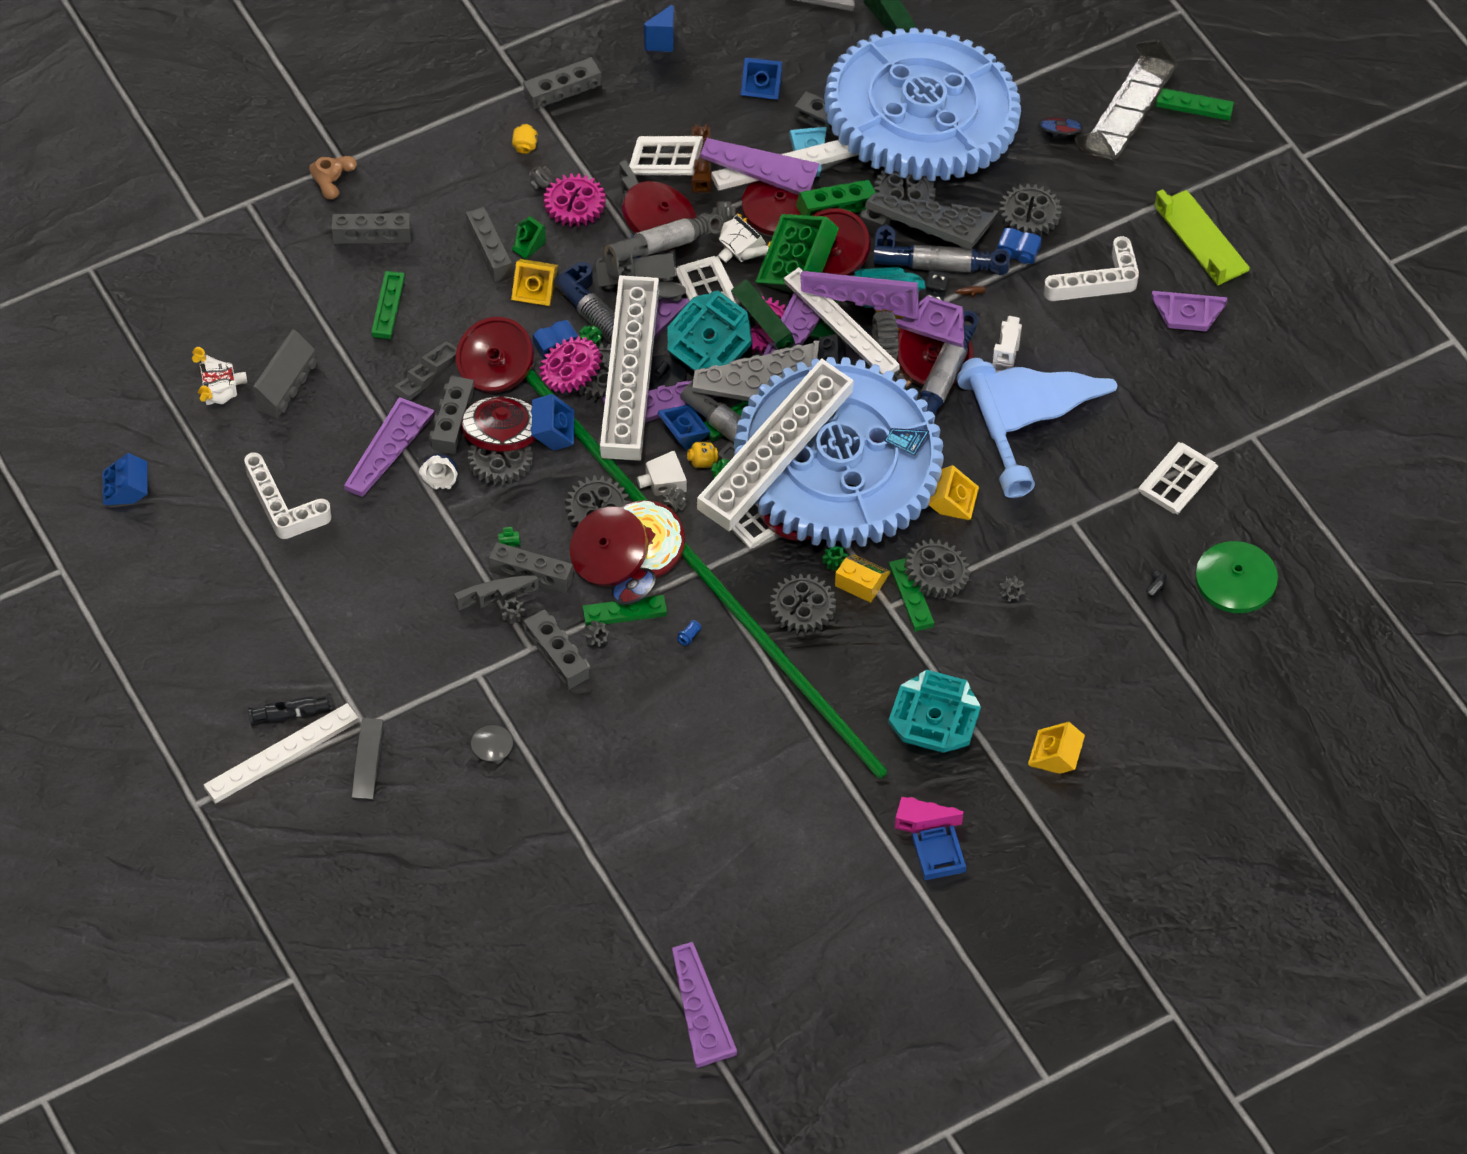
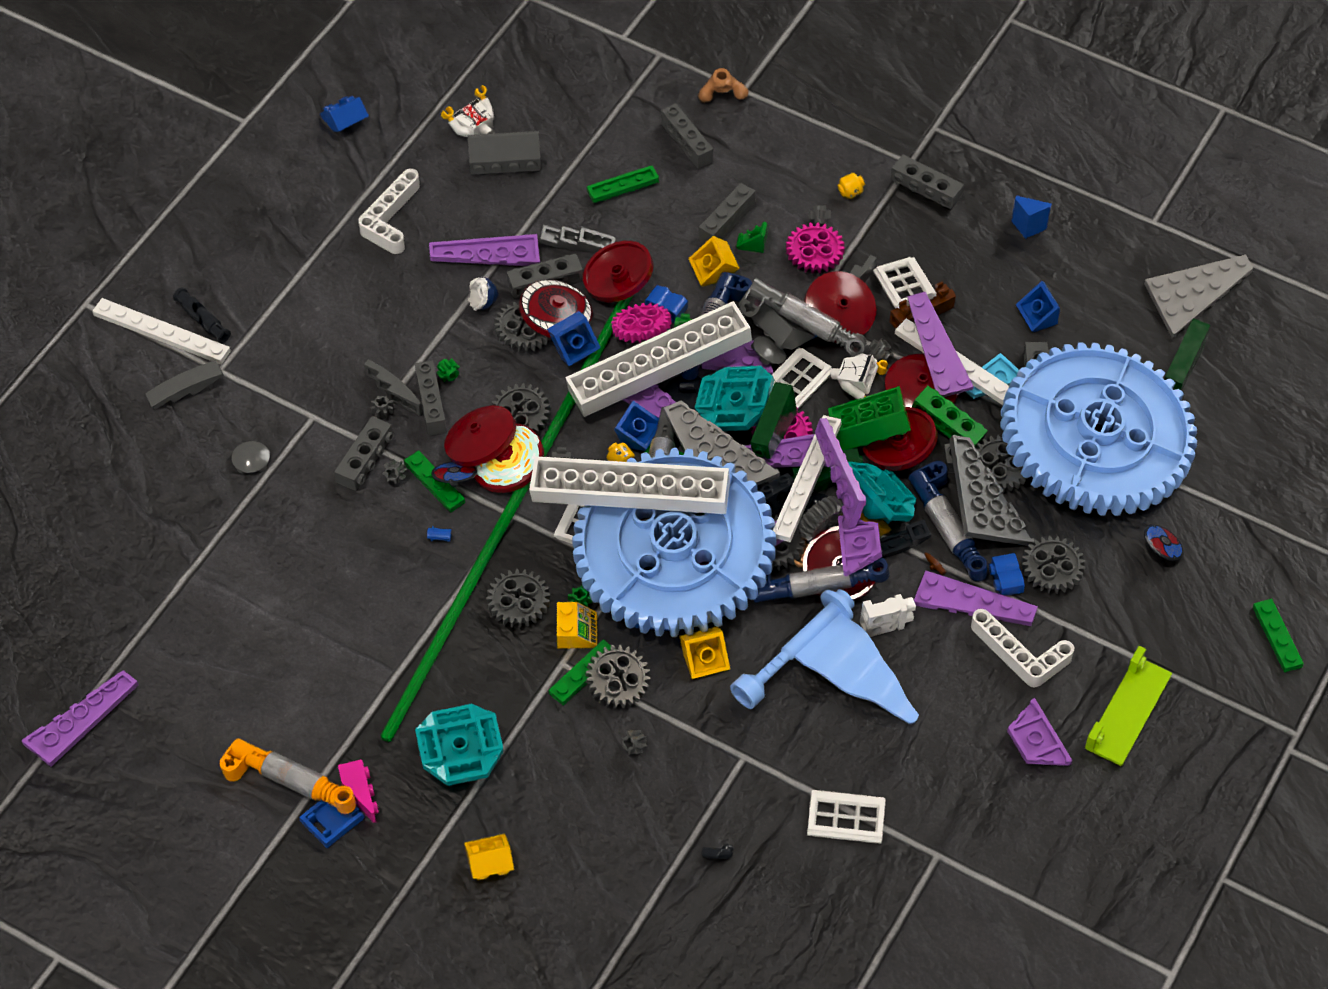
camera: 60 degrees right, 0 degrees up
(663, 474) = (583, 439): white torso -> none
(876, 861) = (285, 772): none -> light orange piece
(906, 439) = (715, 581): dark blue sticker -> none
(1018, 289) = (946, 593): none -> medium lavender wing
(1131, 101) = (1234, 584): clear smoke piece -> none
(1236, 577) = (769, 914): green dish -> none

